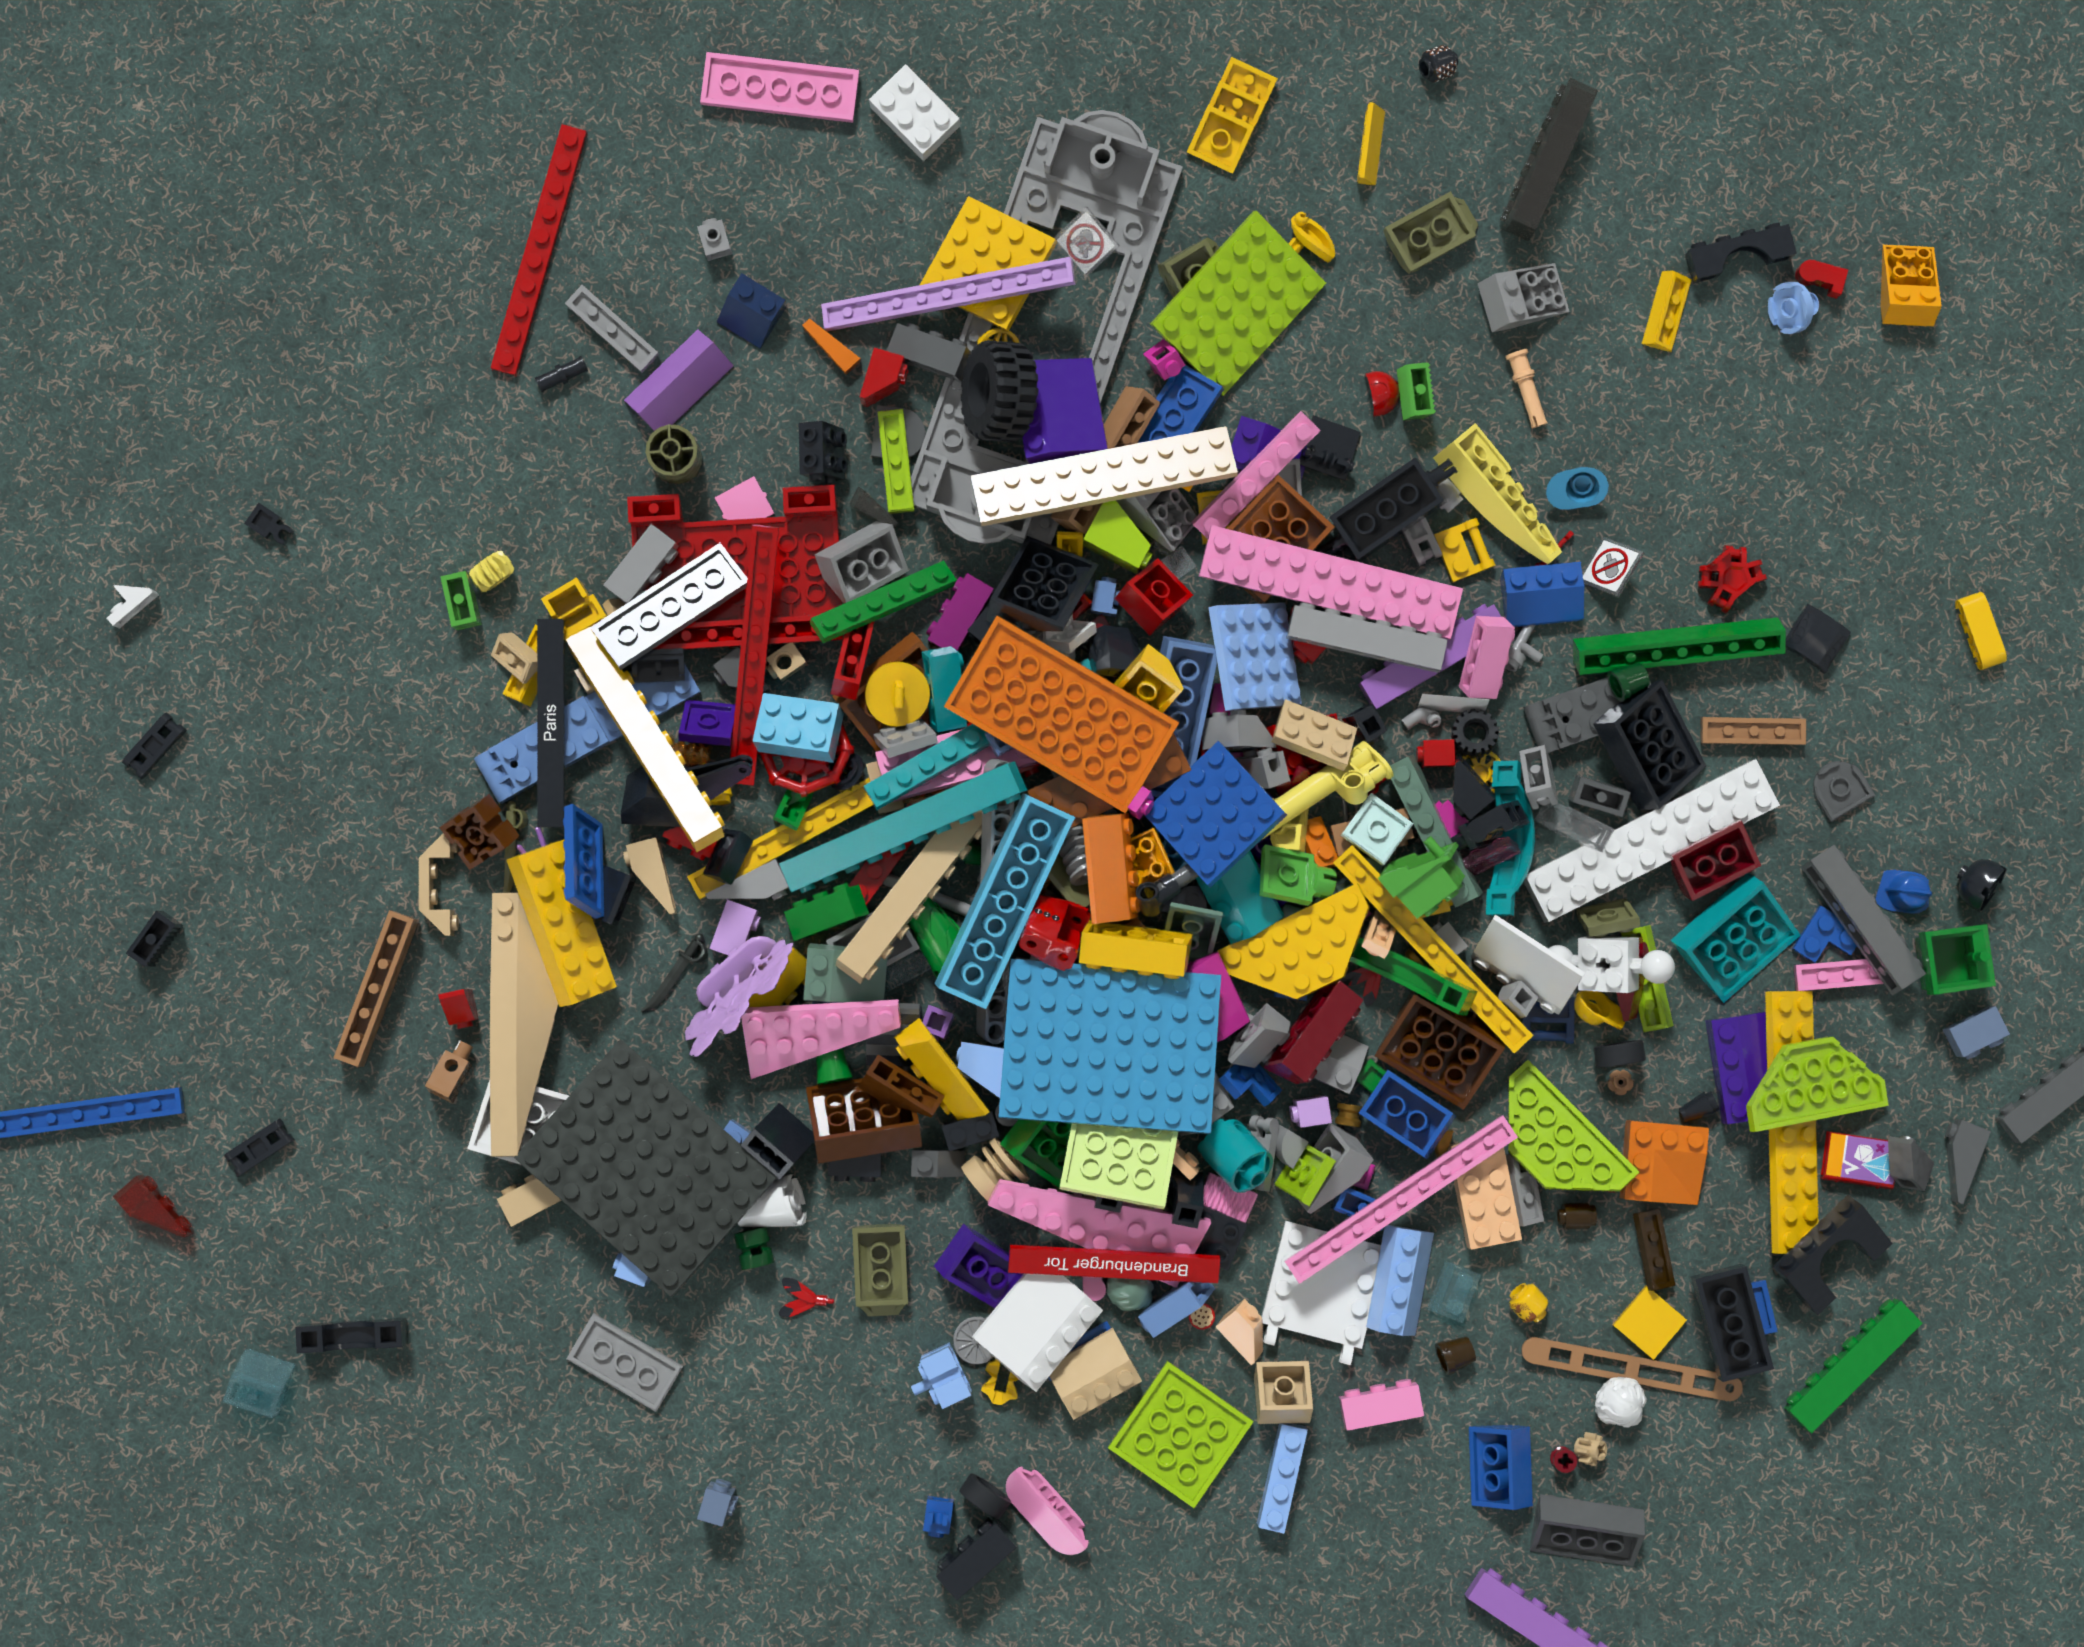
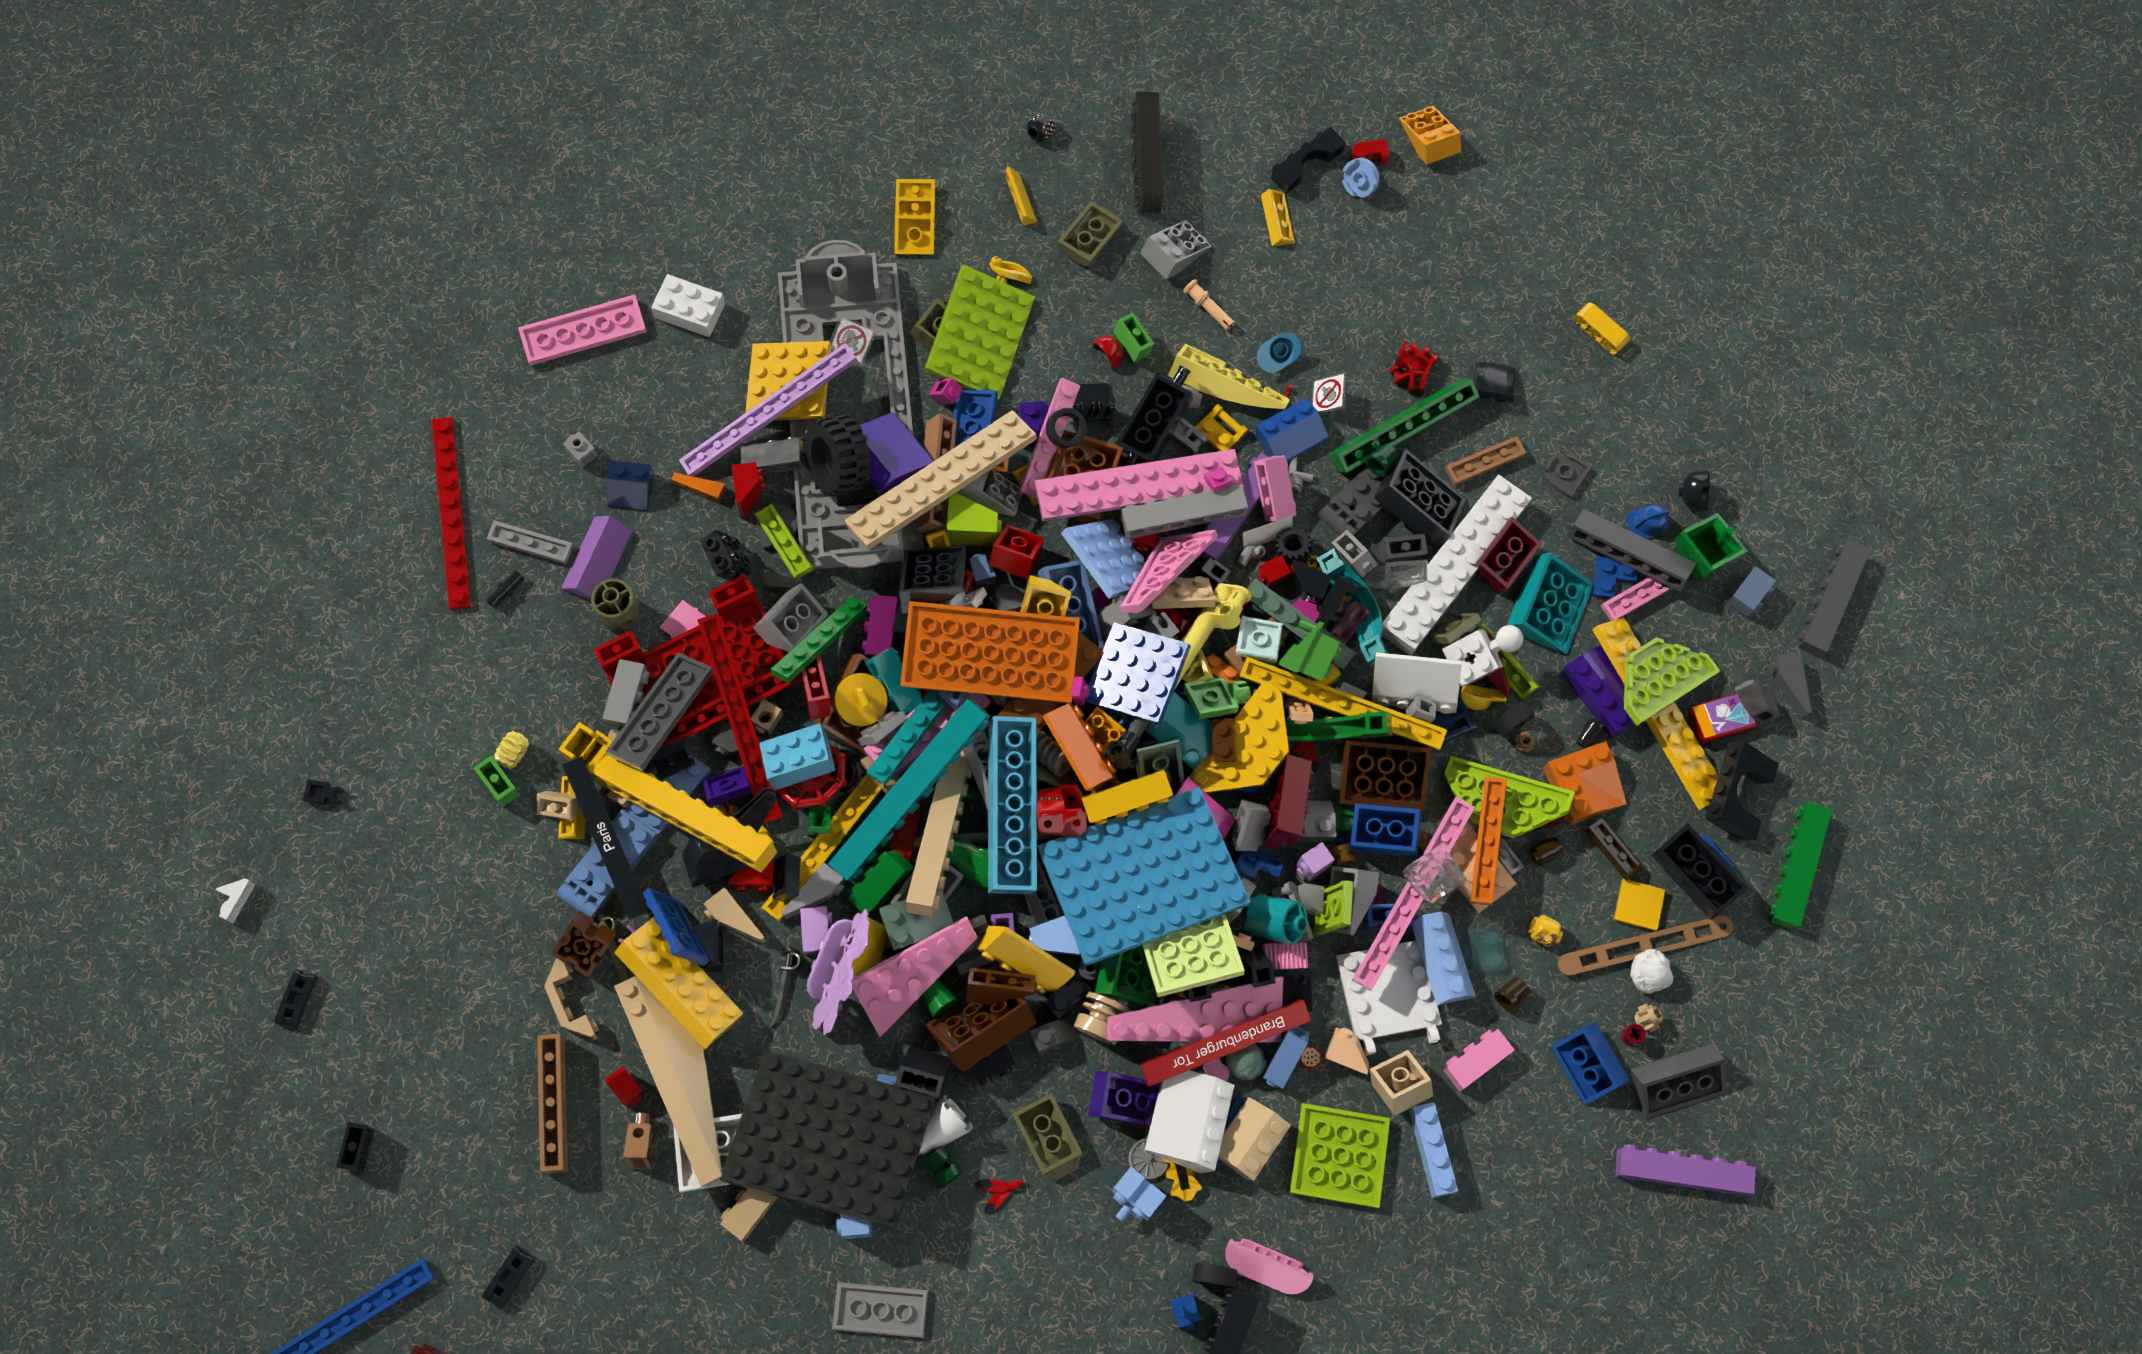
camera: 25 degrees left, 15 degrees down
(1277, 930) = (1223, 740): none -> reddish brown plate
(1291, 491) = (1080, 423): none -> black tyre
(1316, 692) = (1164, 564): none -> bright pink wing
(1422, 620) = (1218, 479): none -> dark pink plate
(1429, 1196) = (1435, 875): none -> clear slope
(1513, 1181) = (1488, 841): none -> orange plate

